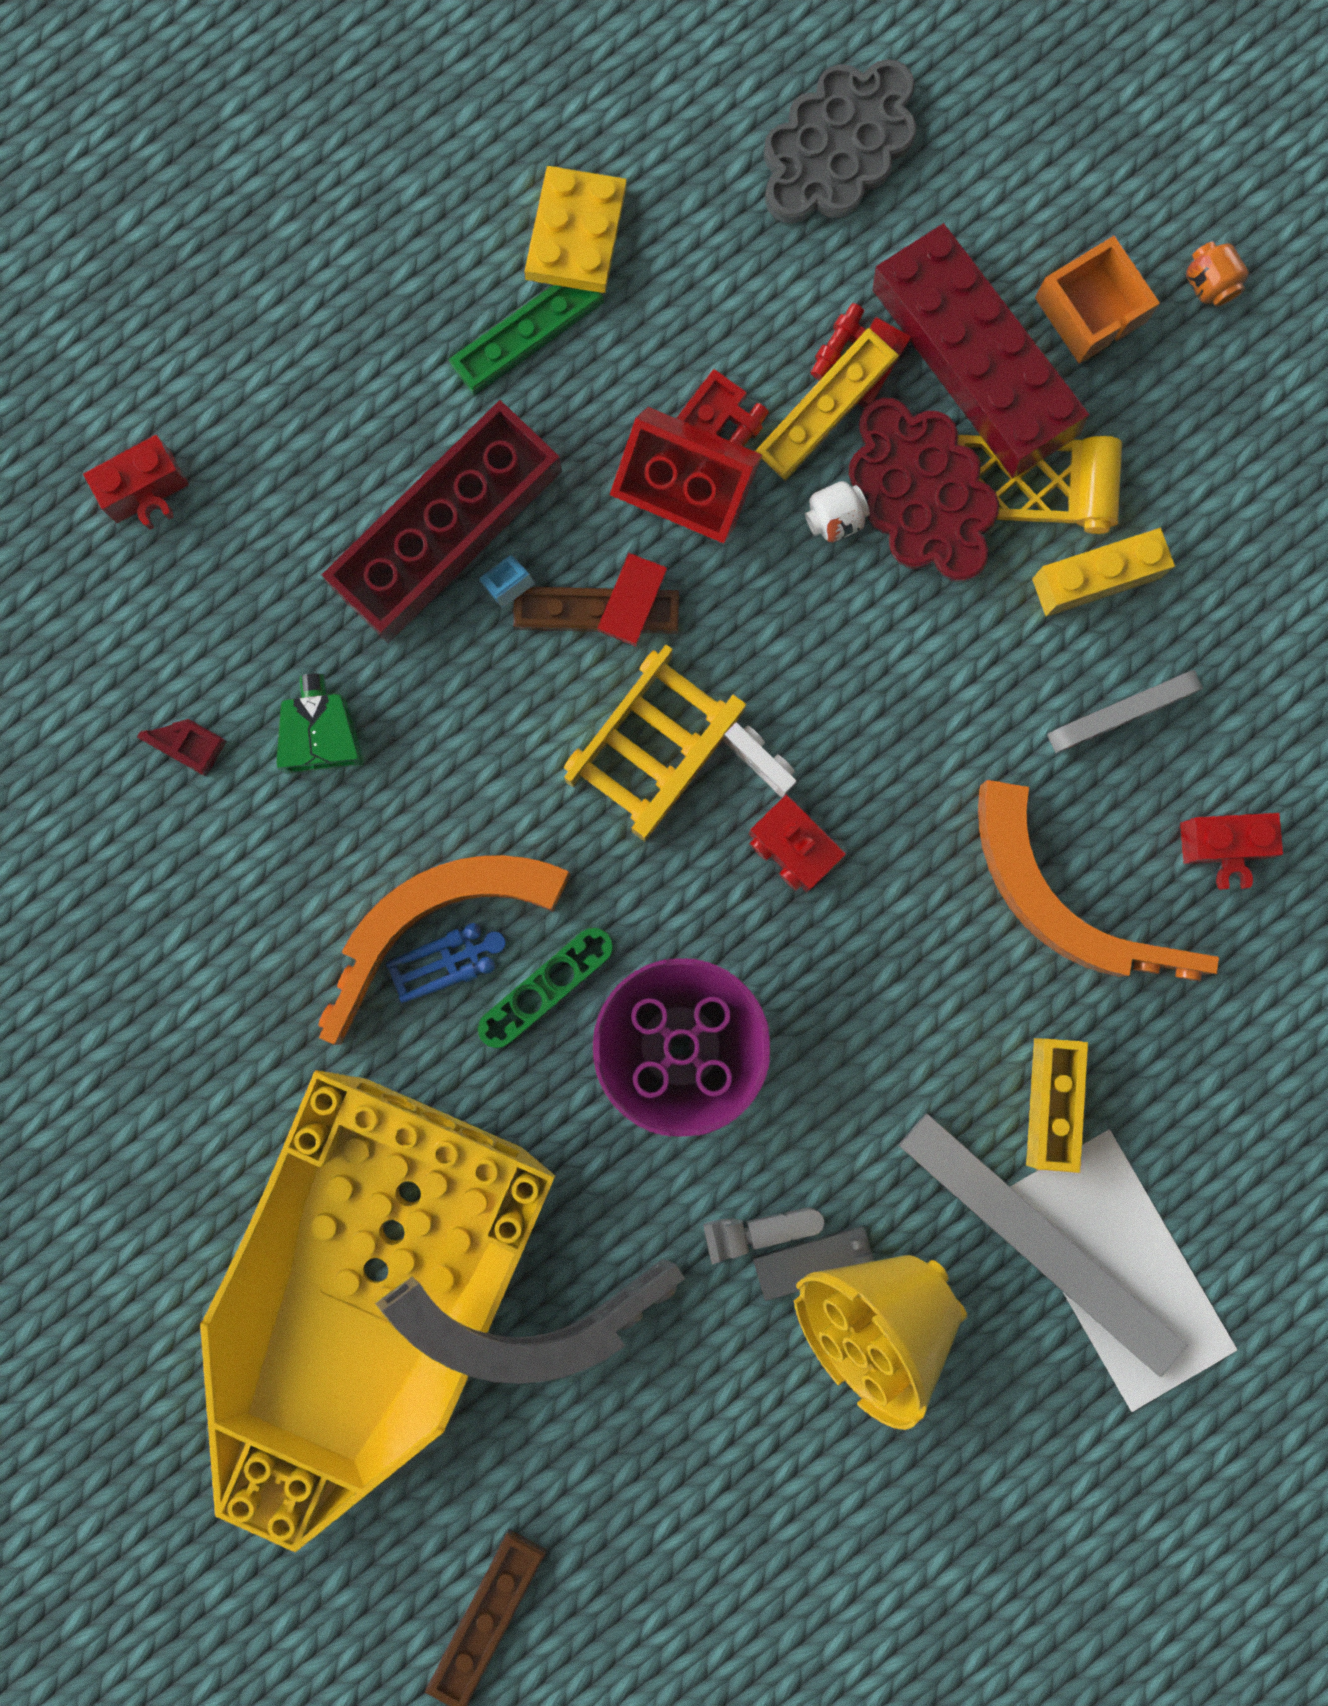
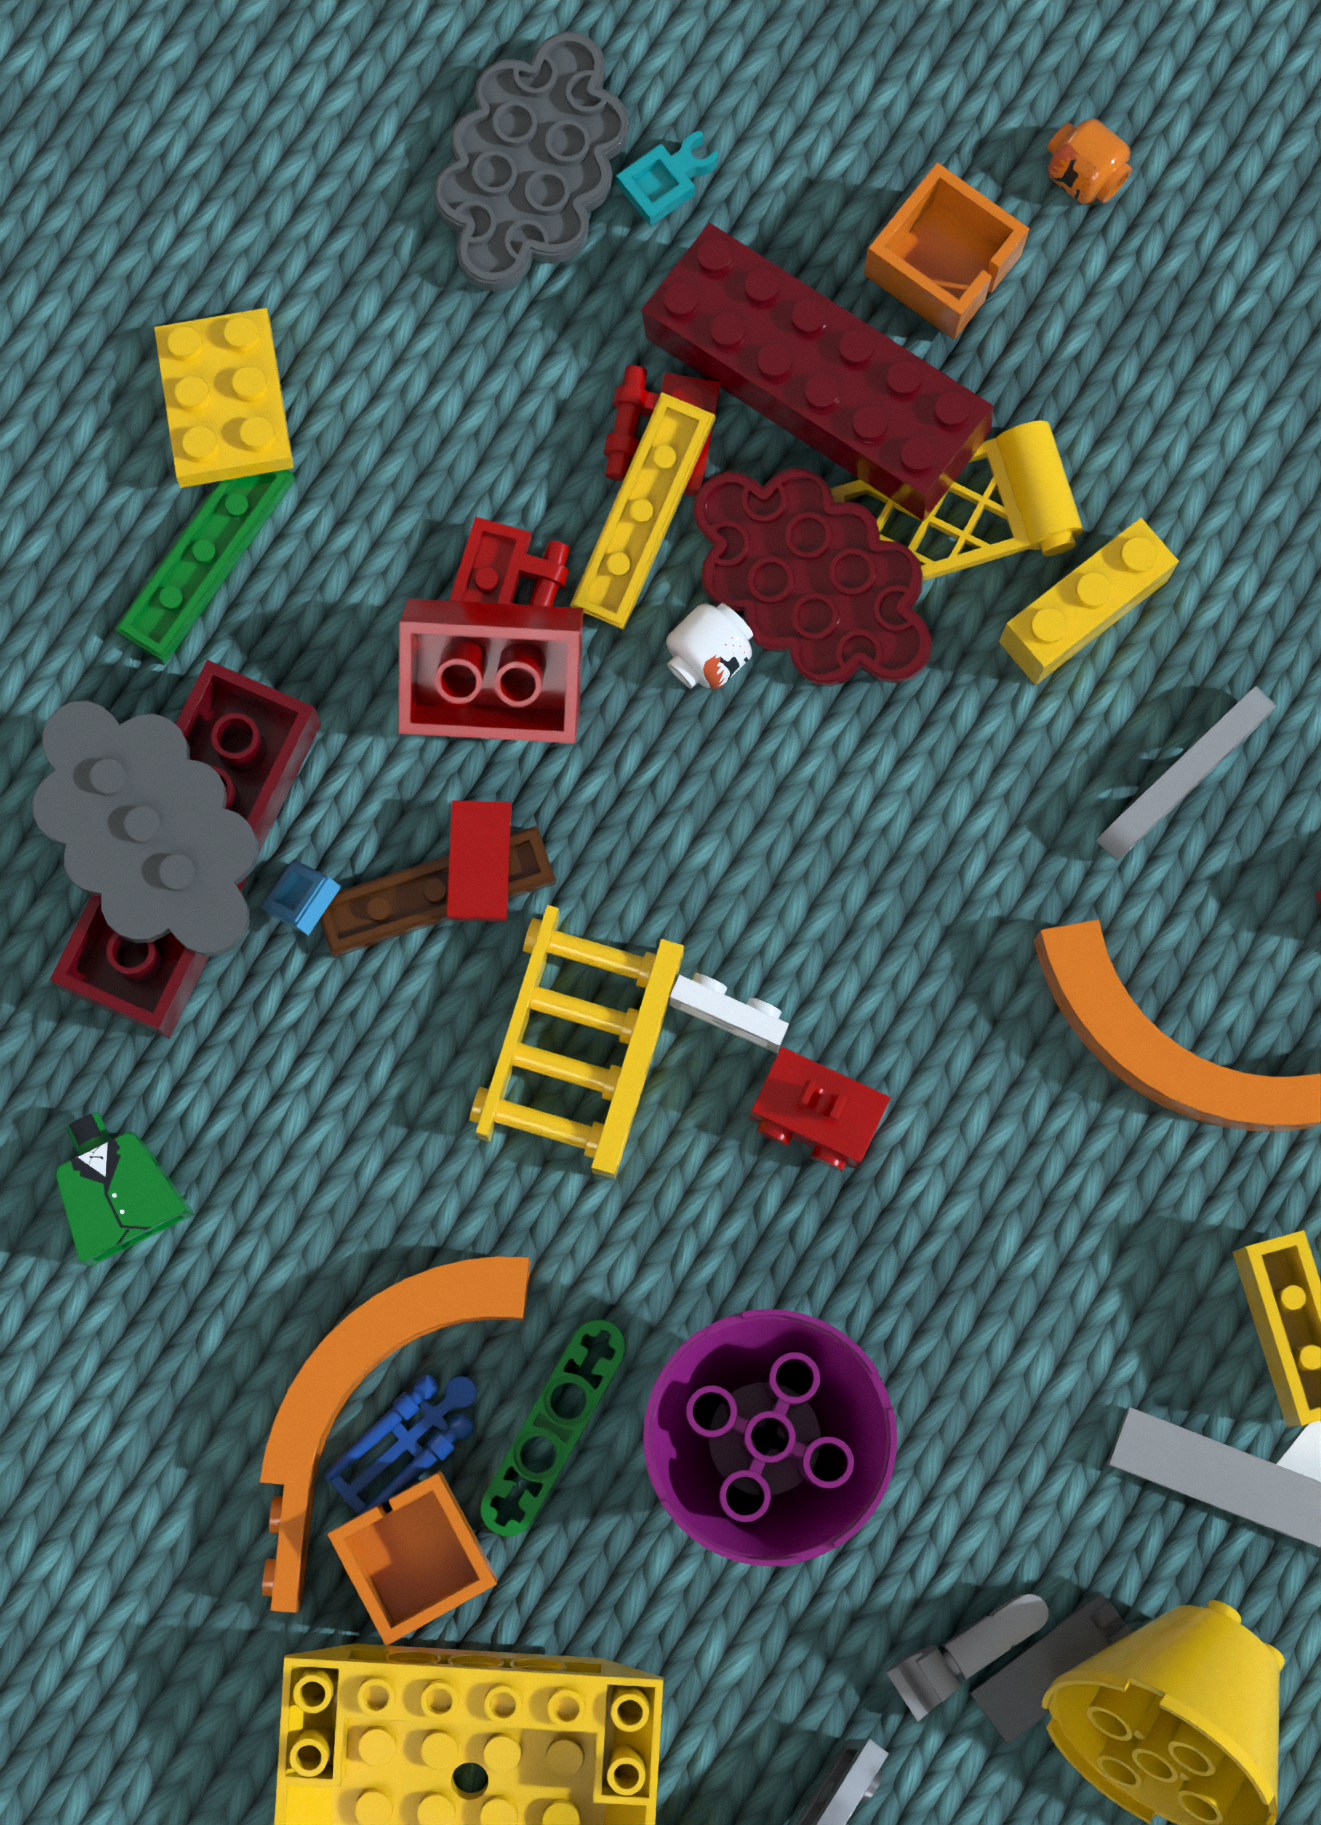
camera: 20 degrees left, 5 degrees down
(418, 496) = (145, 828): none -> dark grey plate
(423, 1038) = (414, 1558): none -> orange piece
(922, 185) = (662, 181): none -> teal plate

